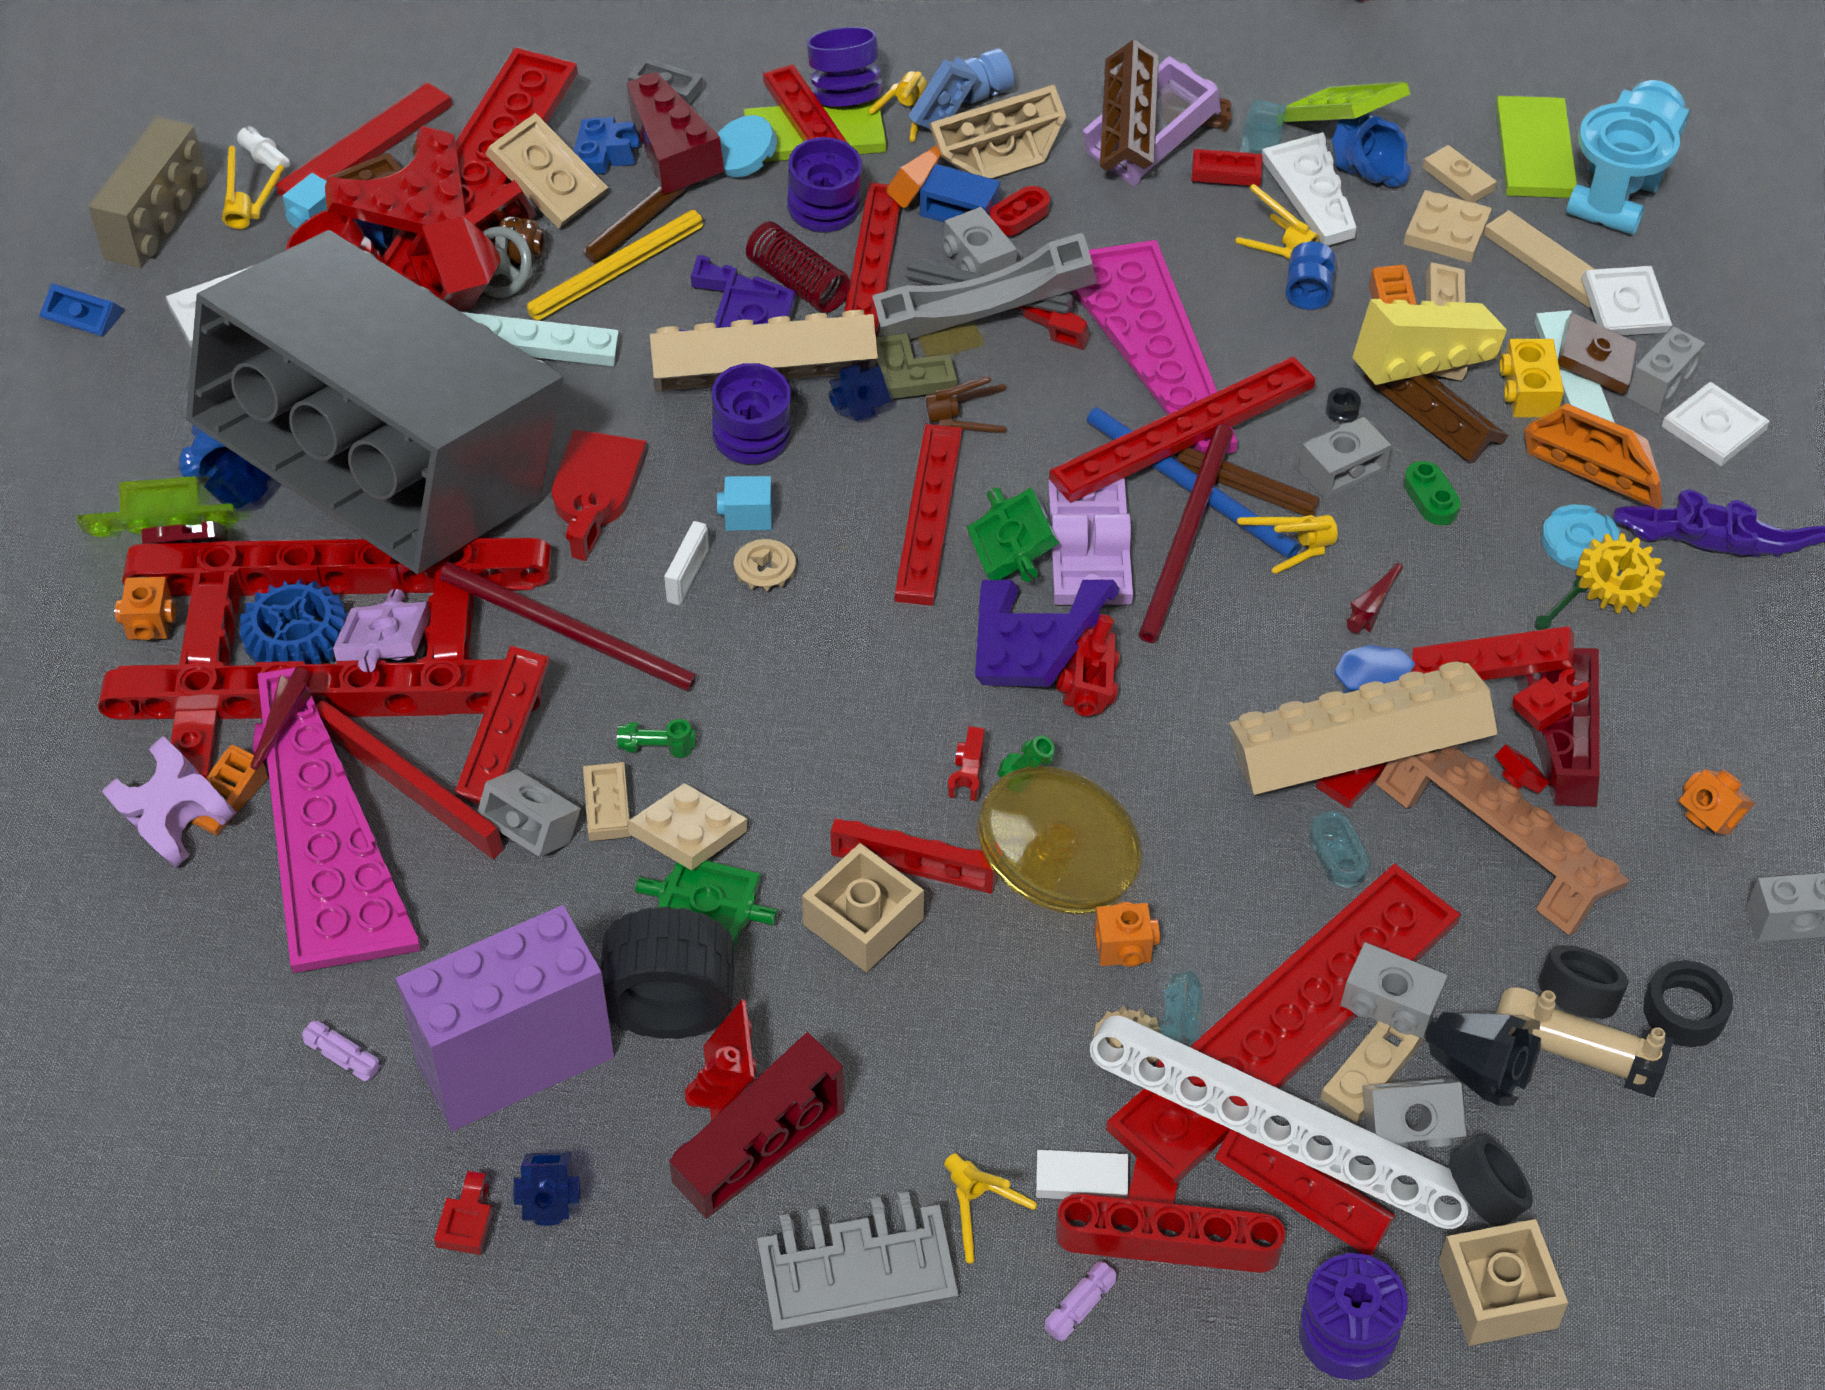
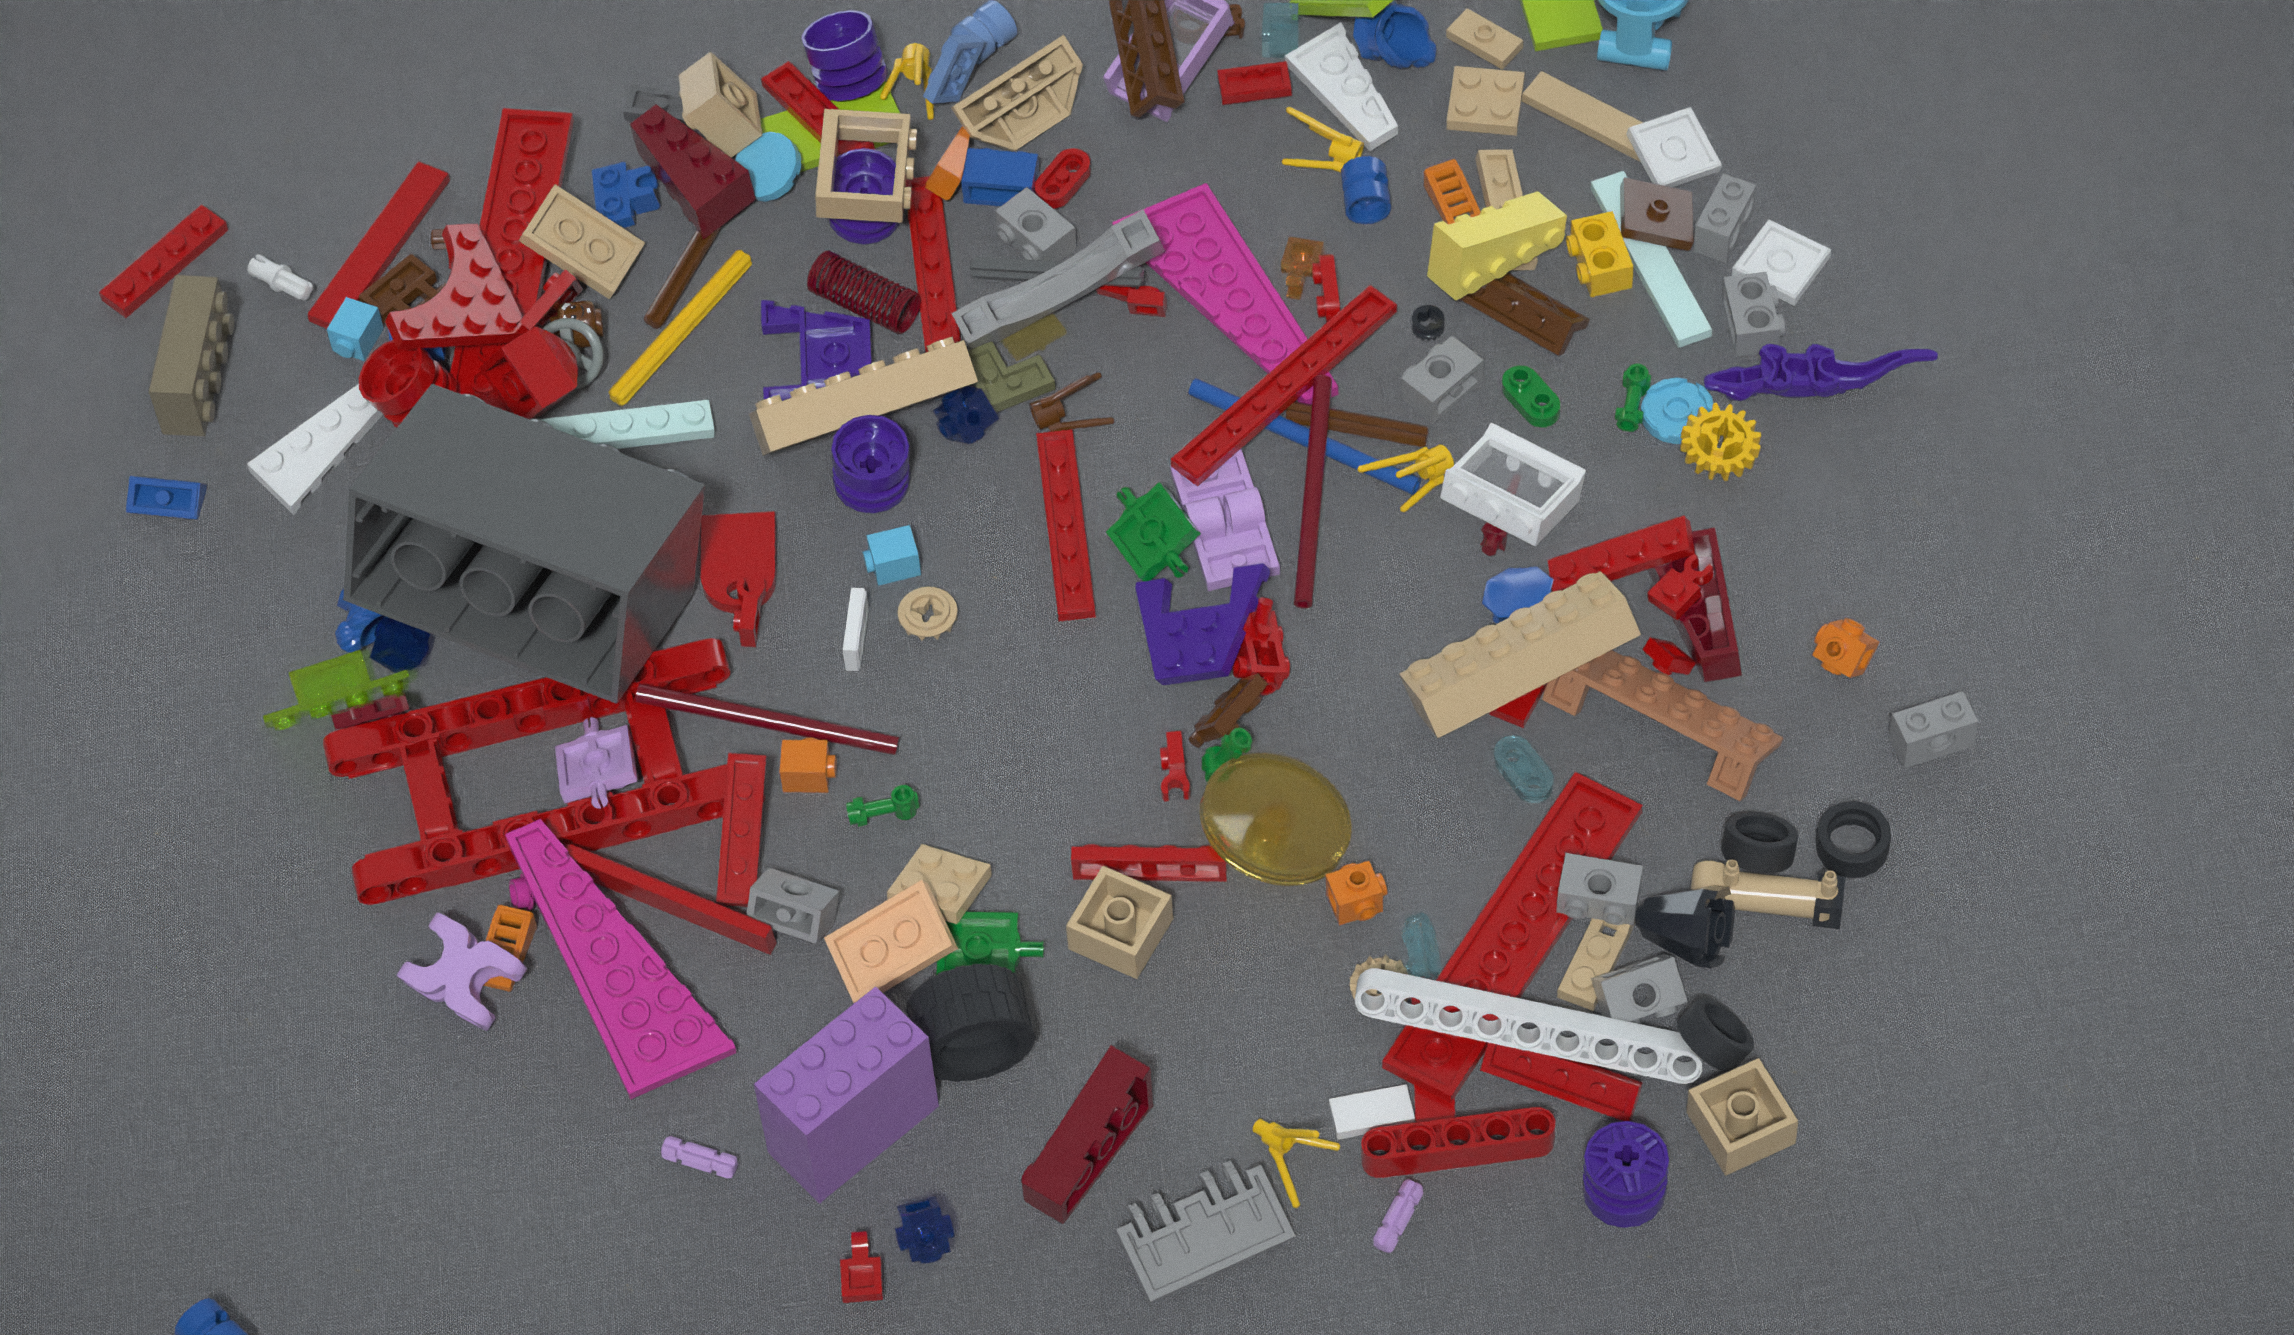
camera: 10 degrees left, 5 degrees up
(146, 608) = (365, 792): orange brick -> none
(189, 108) = (163, 261): none -> red plate
(195, 737) = (456, 902): red plate -> none
(238, 205) = (280, 348): yellow plant -> none
(288, 700) = (545, 852): dark red piece -> none
(290, 617) = (499, 769): blue gear -> none
(592, 680) = (806, 765): none -> orange brick
(606, 801) = (856, 876): tan plate -> none
(616, 871) = (891, 941): none -> light nougat plate
(714, 82) = (719, 105): none -> tan brick
(727, 1064) = (1044, 1089): red hinge -> none
(836, 116) = (873, 128): none -> tan window
(1056, 710) = (1228, 709): none -> reddish brown plate
(1229, 325) = (1298, 263): none -> clear orange plate
(1250, 339) = (1325, 275): none -> red plate
(1395, 567) = (1514, 485): none -> white window
(1543, 502) = (1637, 384): none -> green bar
(1544, 622) = (1660, 505): dark green hinge -> none
(1597, 452) = (1676, 324): orange wedge -> none
(1679, 457) = (1751, 312): none -> light grey brick

